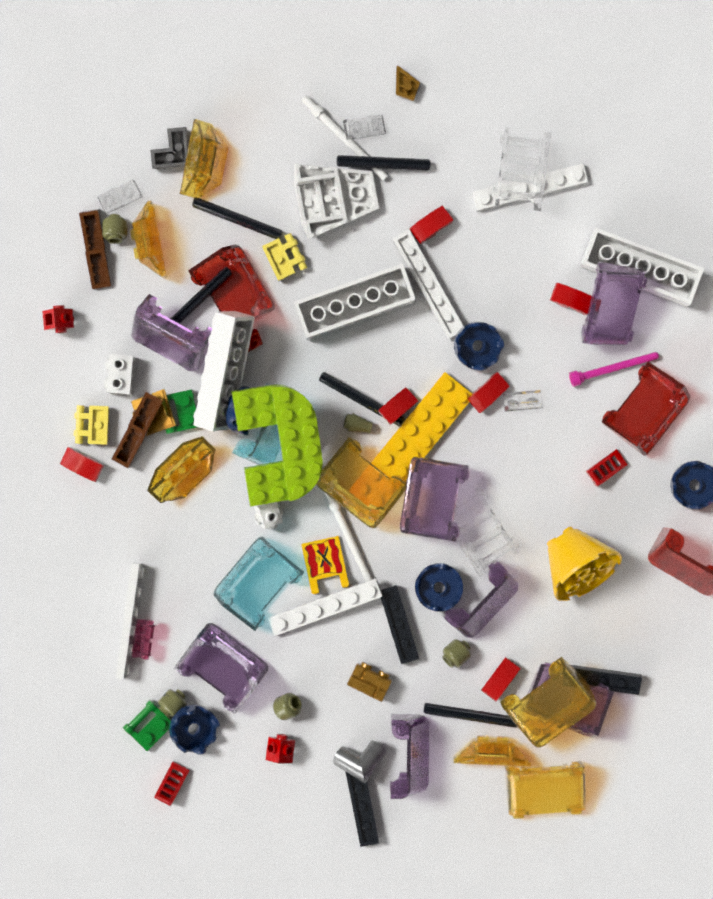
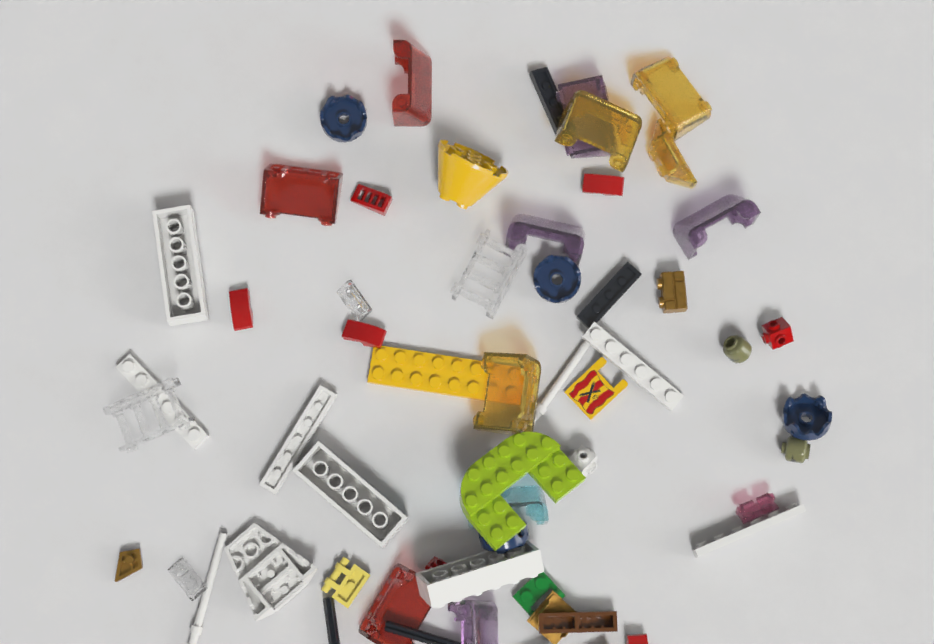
camera: 125 degrees left, 10 degrees down
(153, 730) = (831, 454): green plate -> none
(163, 798) = (865, 417): red slope -> none
(182, 470) = (589, 561): clear yellow wedge -> none
(223, 665) = (736, 423): clear purple windscreen -> none
(256, 581) = (647, 439): clear light blue windscreen -> none
(354, 395) = (433, 441): black axle -> none
(357, 424) = (458, 434): olive cone -> none
(362, 811) = (780, 238): black plate -> none
(363, 765) = (748, 256): flat silver brick -> none
(383, 162) = (211, 542): black axle -> none
(398, 406) = (421, 404): red slope -> none
(431, 224) = (243, 468): red slope -> none
(432, 498) = (484, 325): clear purple windscreen -> none
(456, 653) = (604, 233): olive head -> none
(467, 714) = (649, 195): black axle -> none
(491, 345) = (328, 353): dark blue plate -> none
(577, 378) = (308, 266): dark pink piece -> none
(613, 305) = (227, 268): clear purple windscreen -> none

